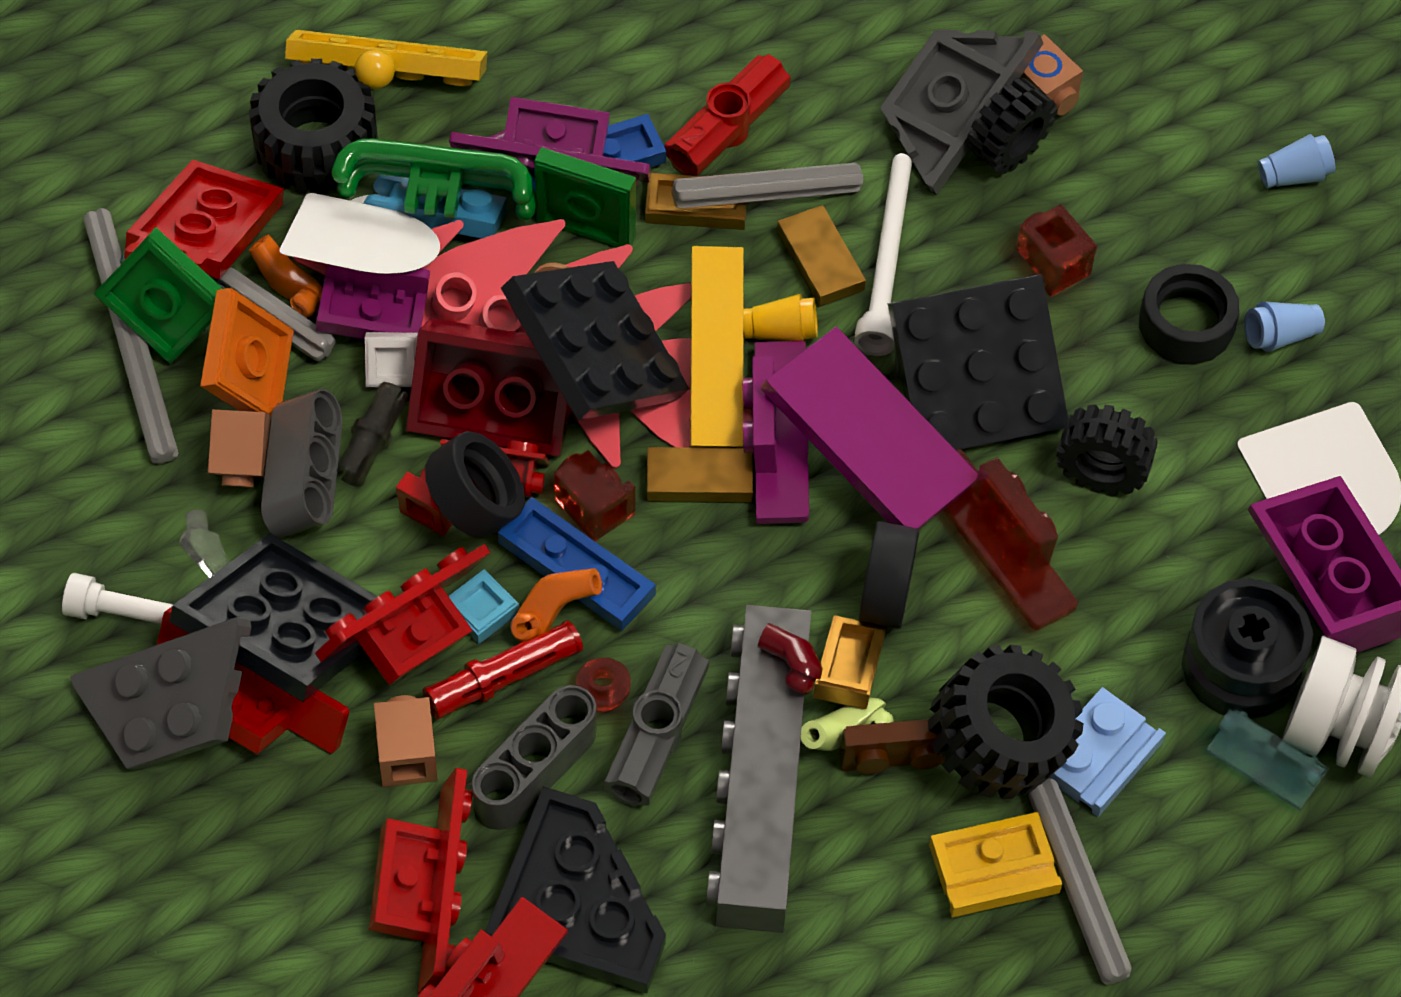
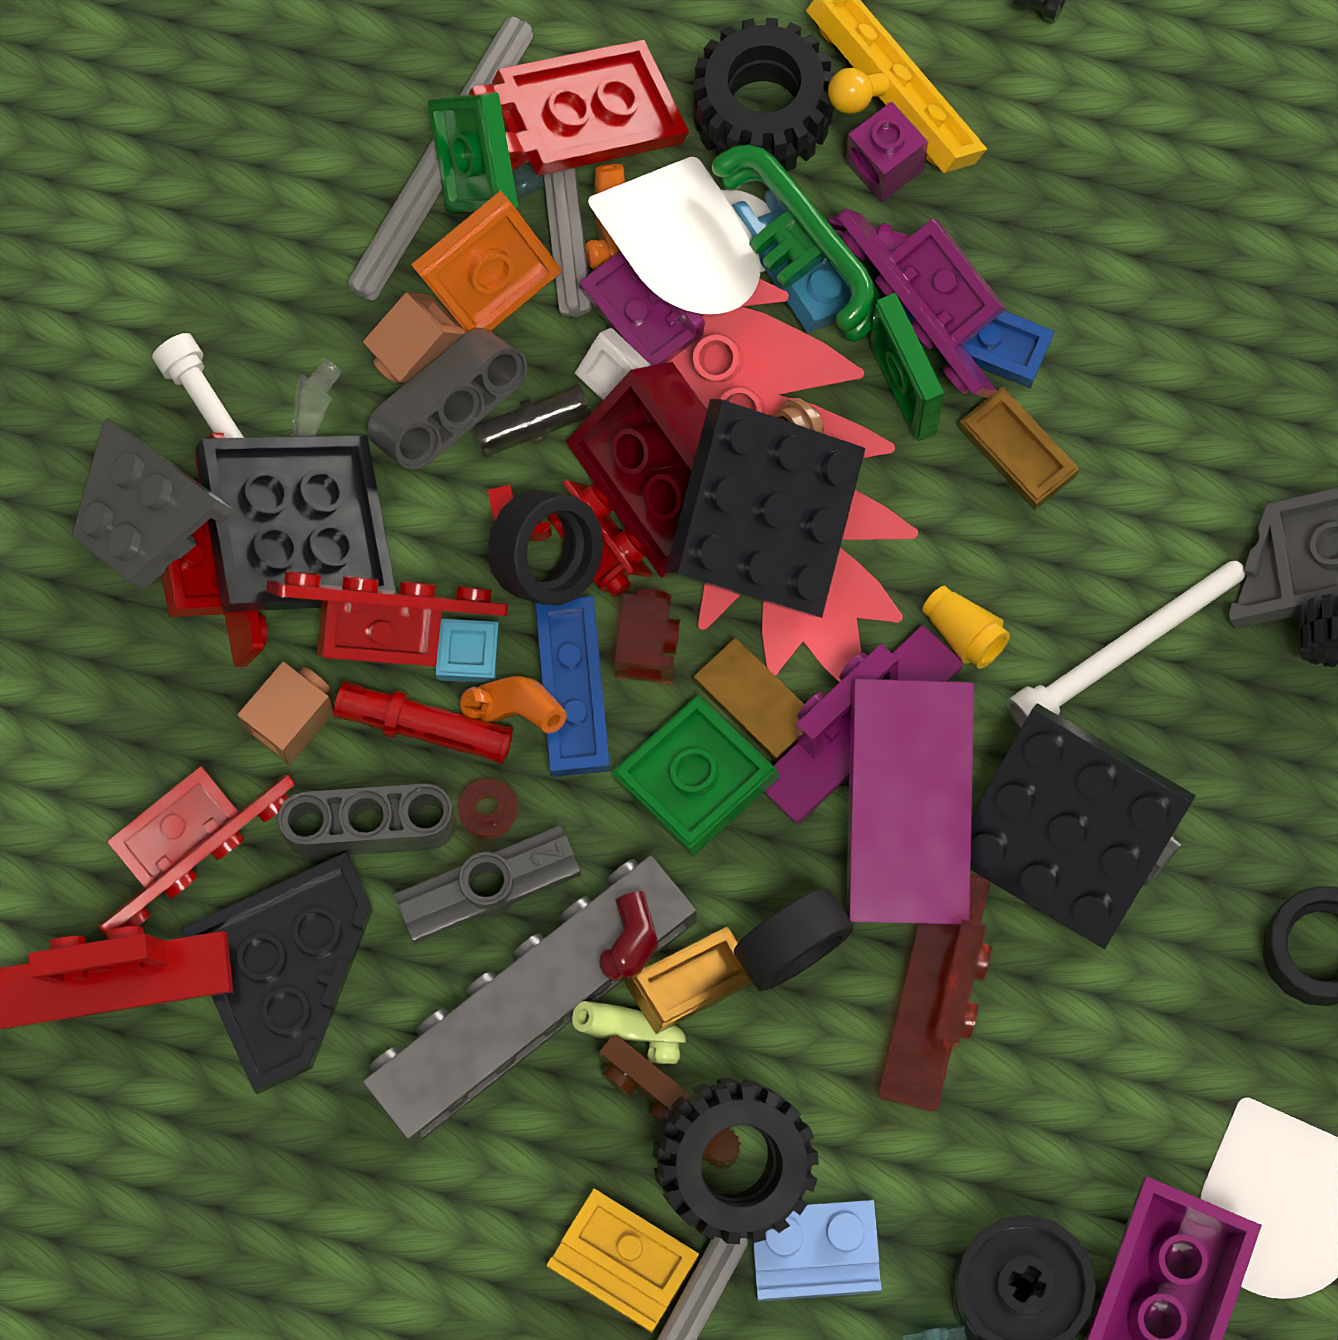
camera: 50 degrees right, 15 degrees up
(428, 97) = (886, 151): none -> magenta brick
(713, 547) = (695, 775): none -> green tile
(716, 347) = (875, 601): yellow tile -> none
(727, 115) = (1159, 388): red piece -> none
(767, 185) = (1084, 491): light grey axle -> none
(821, 255) = (1068, 595): pearl gold tile -> none
(1056, 248) = (1285, 757): clear red brick -> none
(1106, 449) = (1099, 1004): black tyre -> none

